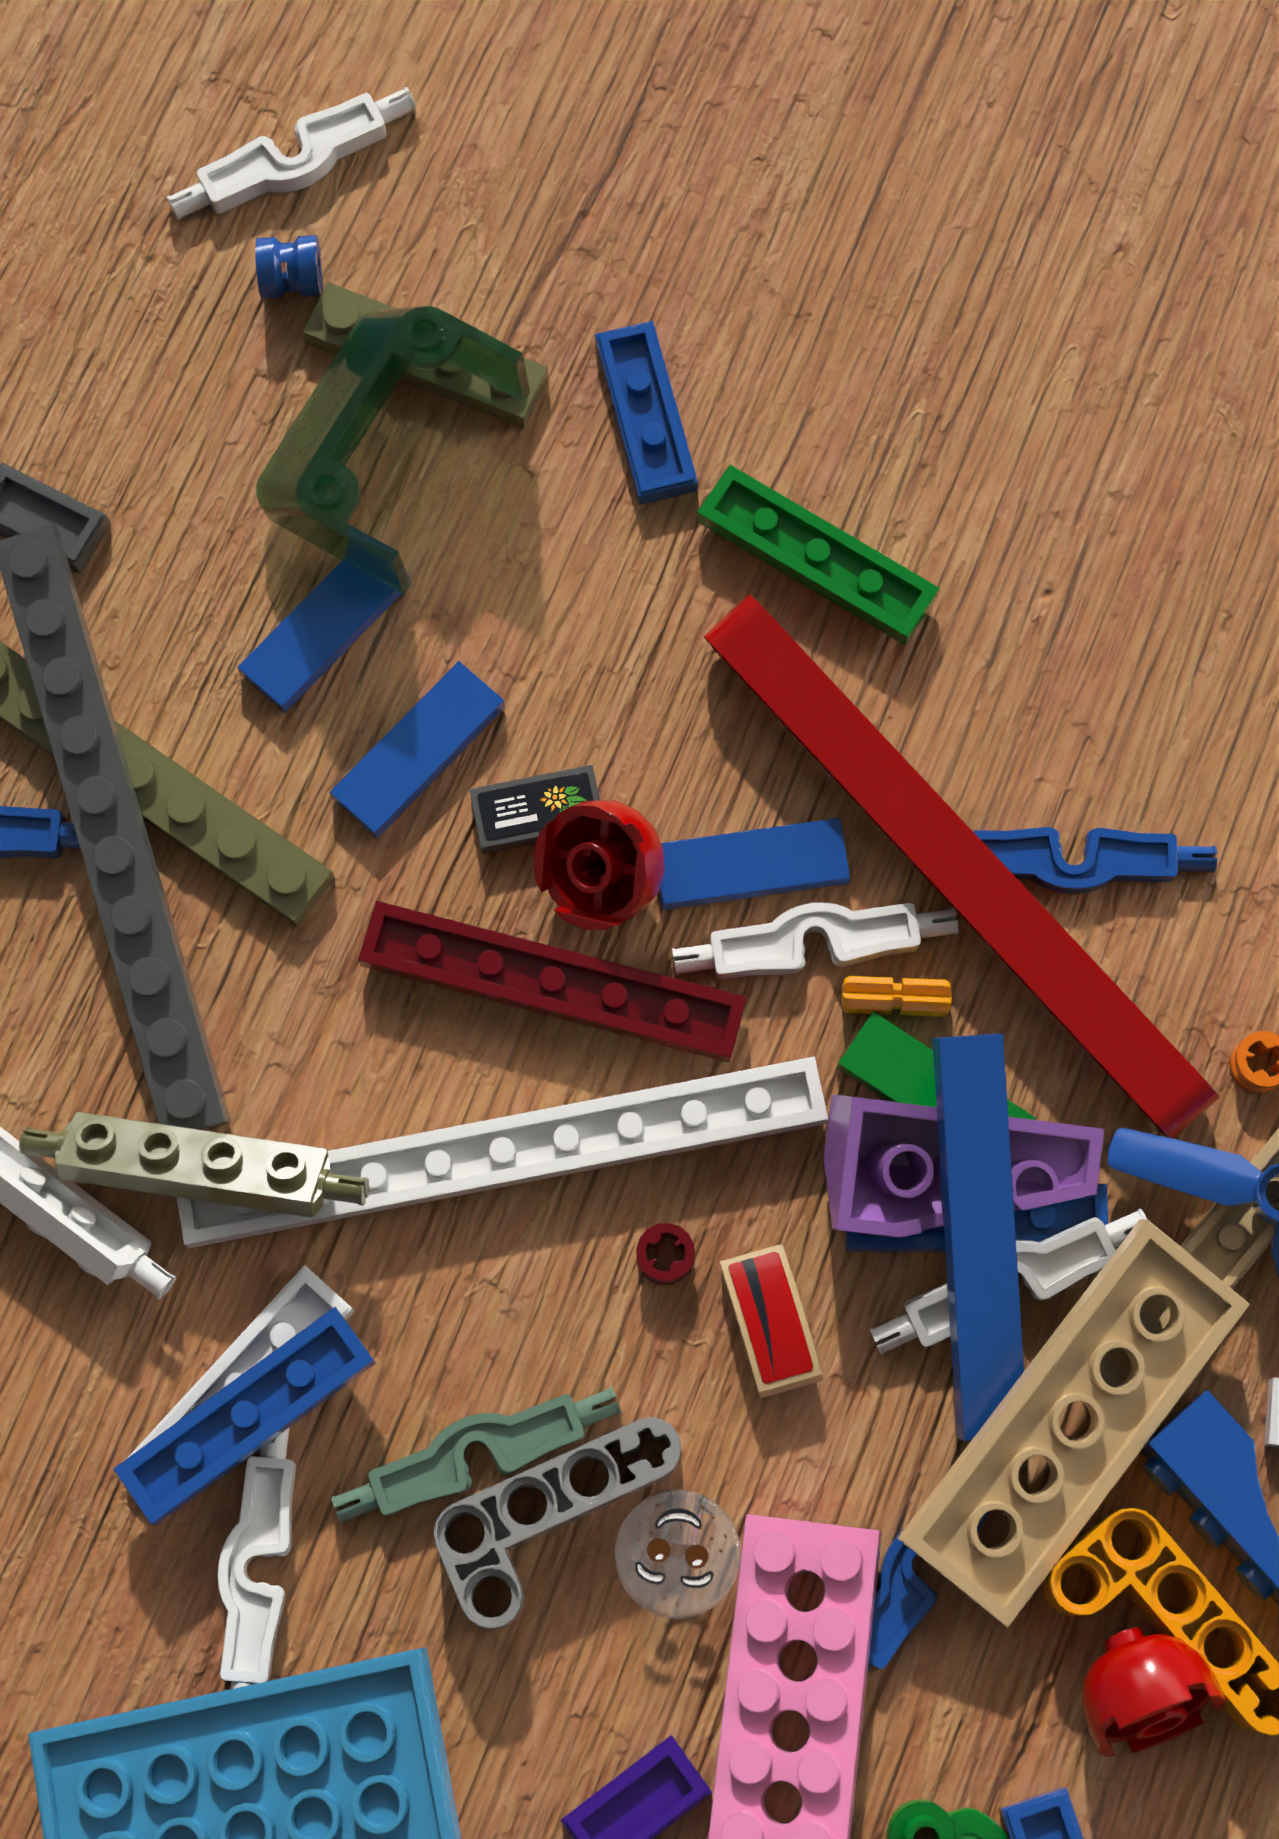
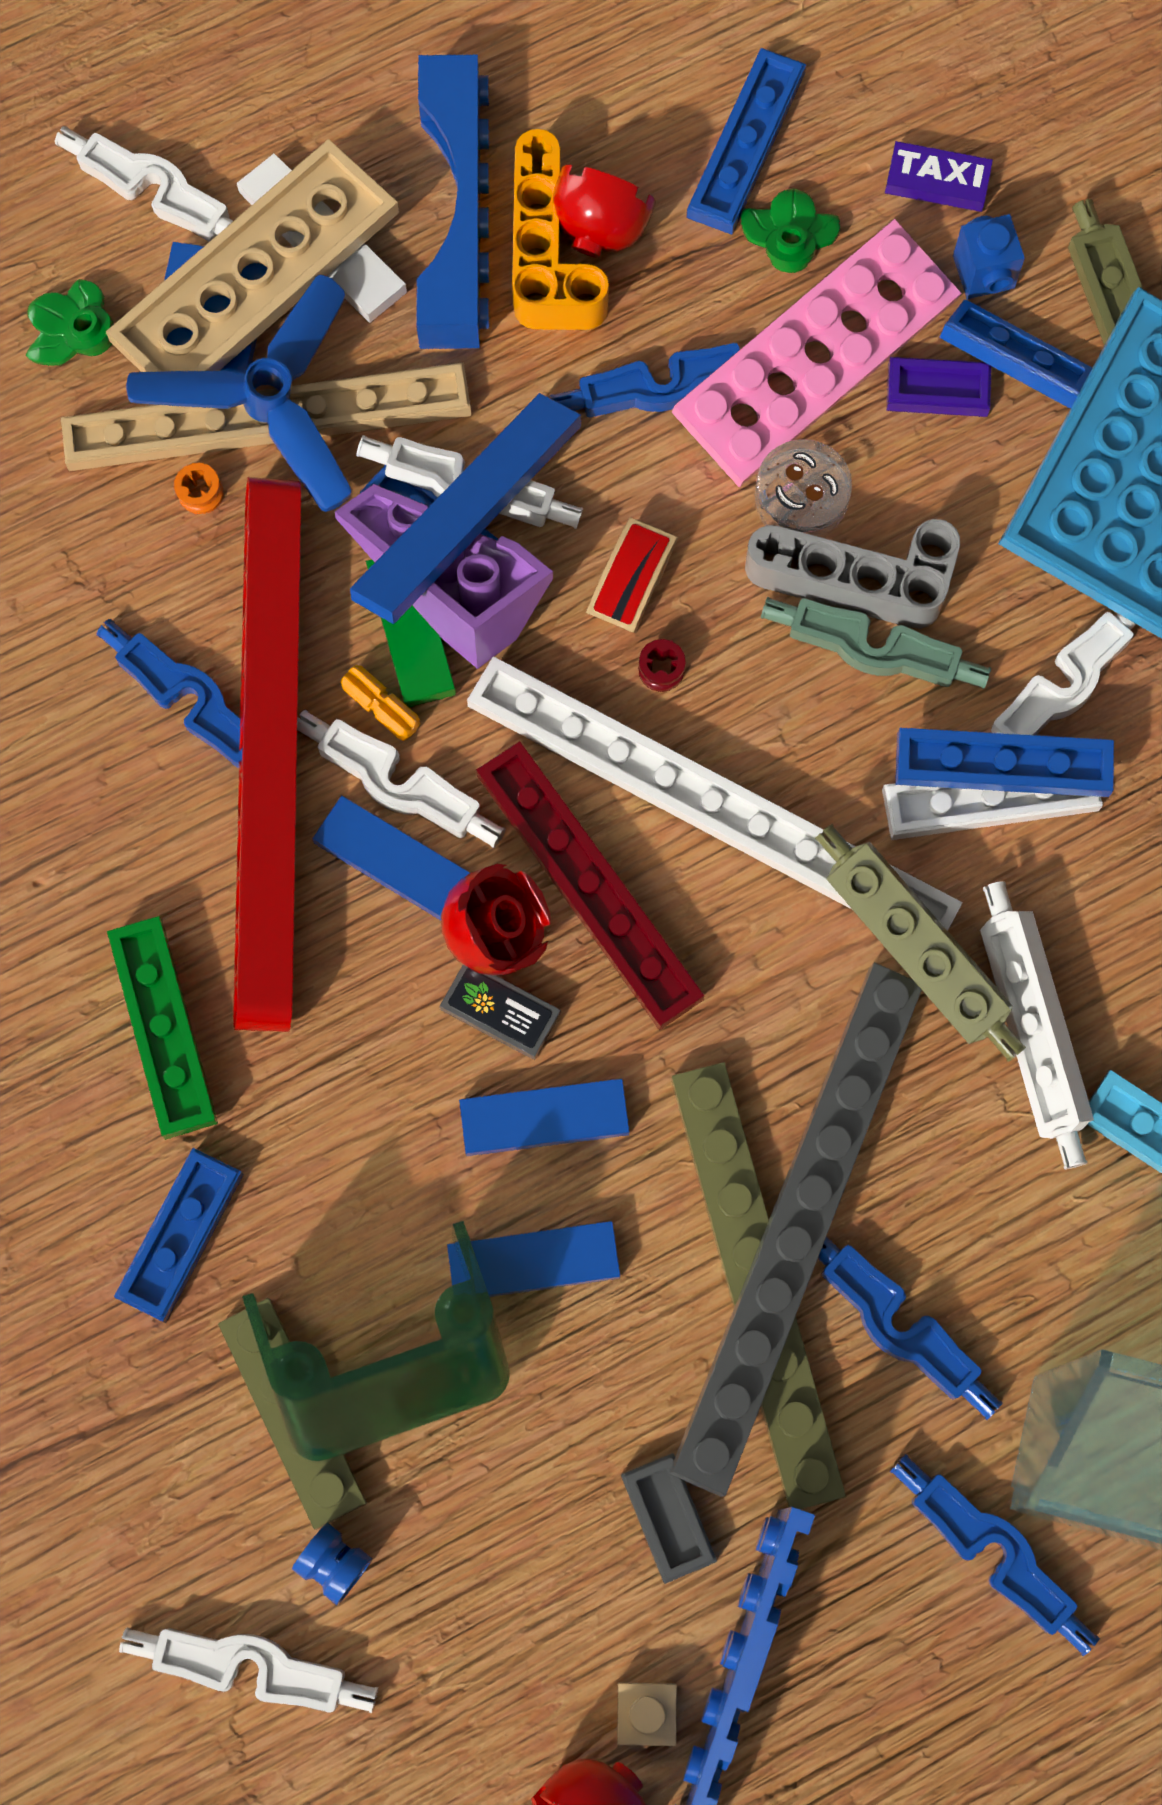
camera: 140 degrees left, 0 degrees up
(1028, 1422) = (495, 397): tan plate -> none

